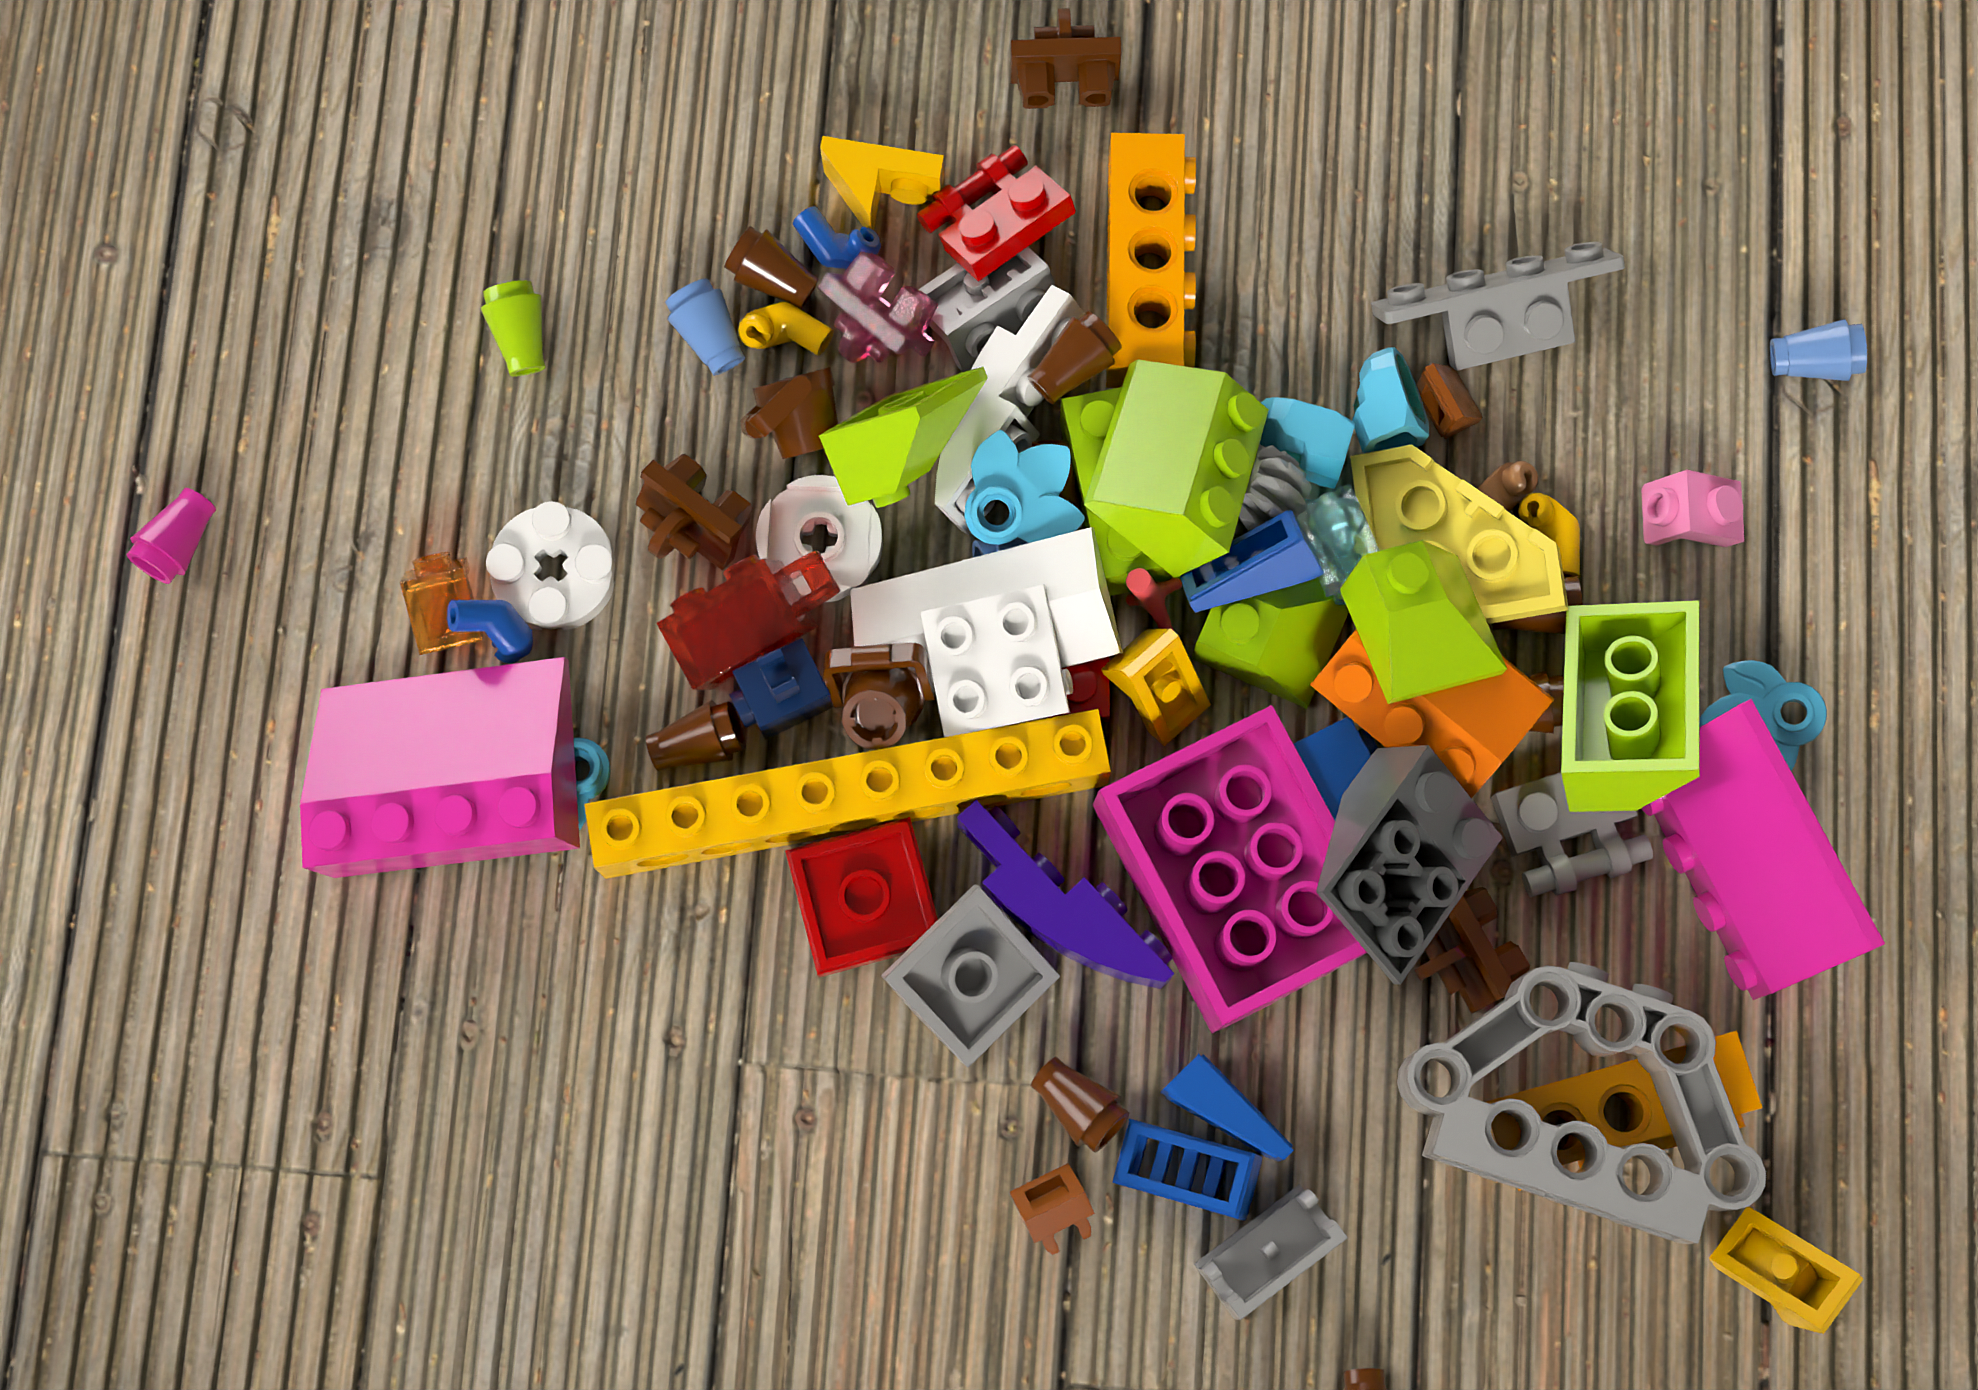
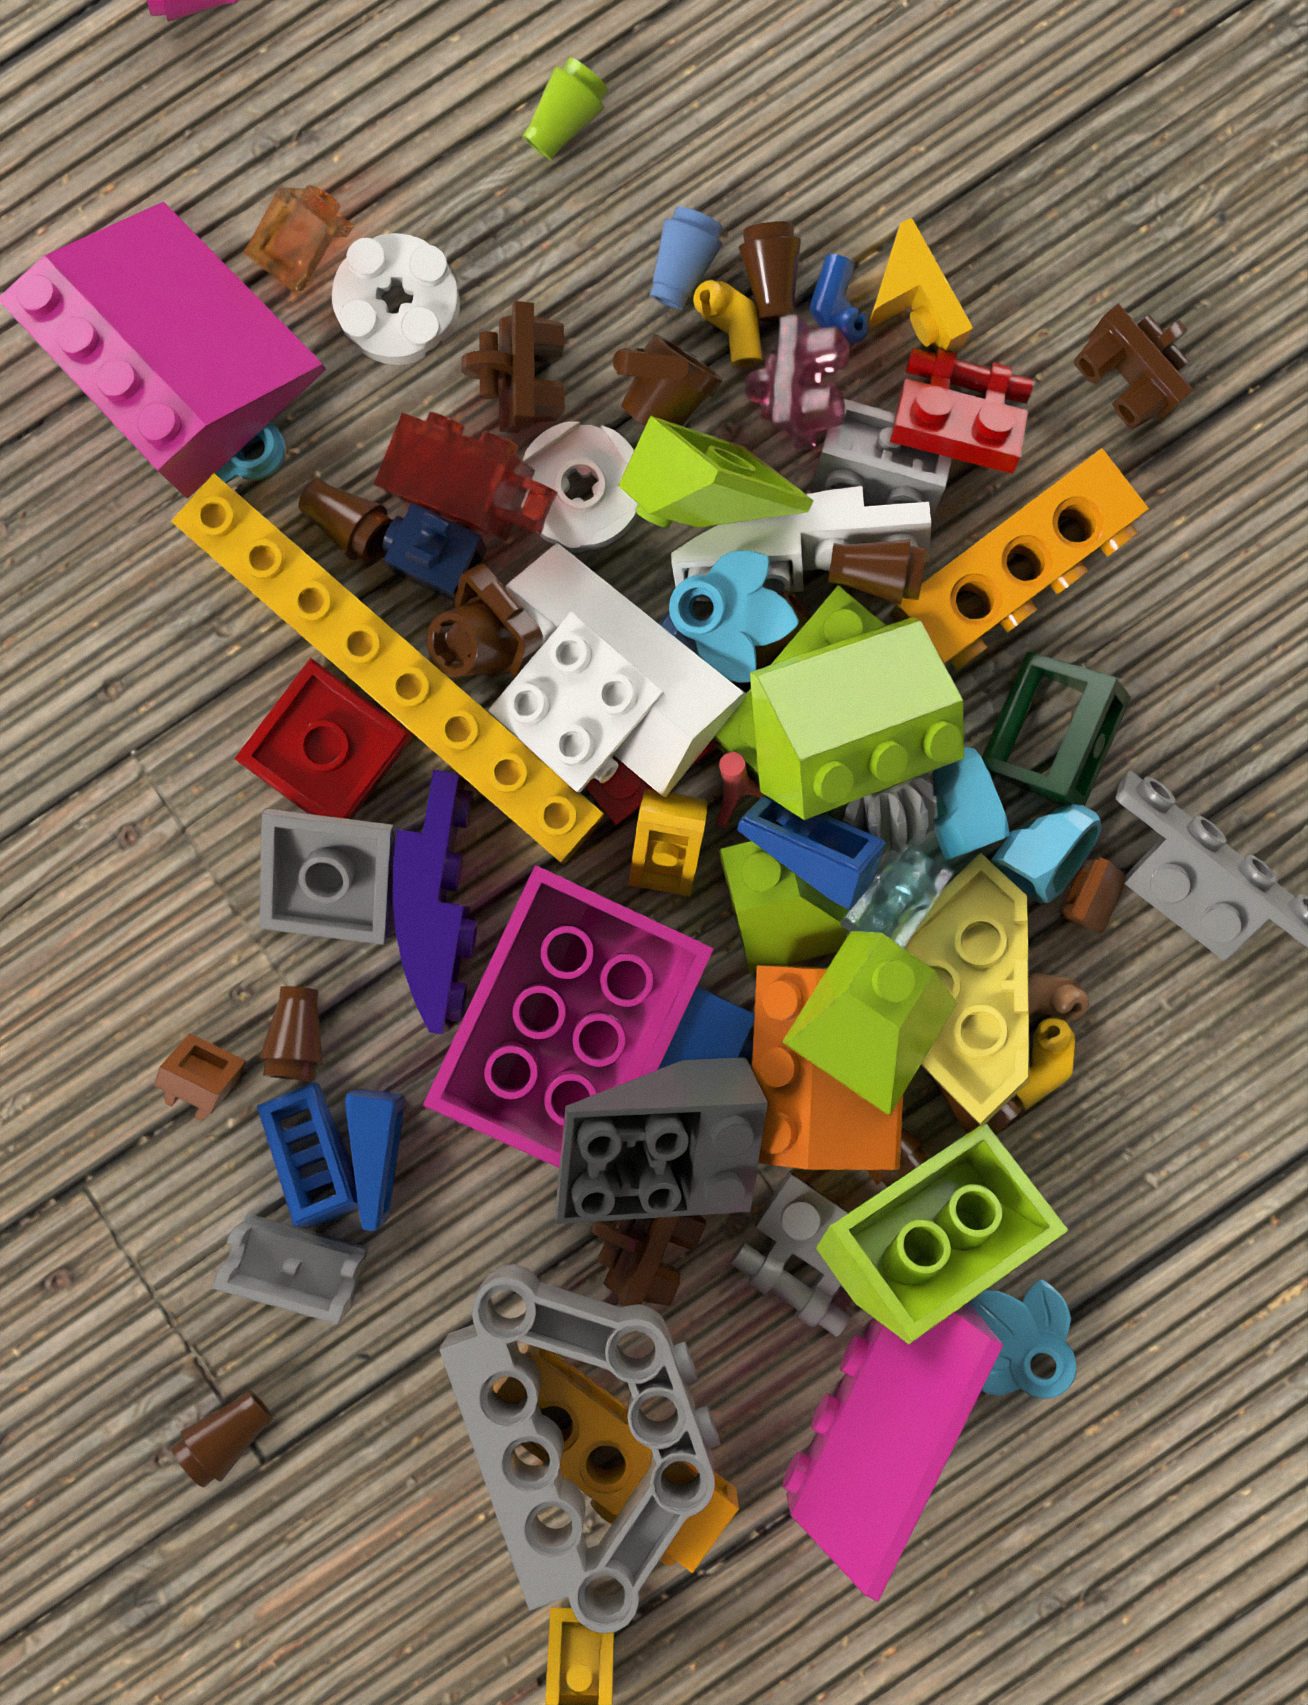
camera: 55 degrees right, 10 degrees up
(498, 620) = (313, 292): blue arm -> none
(1323, 312) = (1085, 741): none -> dark green tile
(1693, 509) = (1154, 1161): bright pink bracket -> none

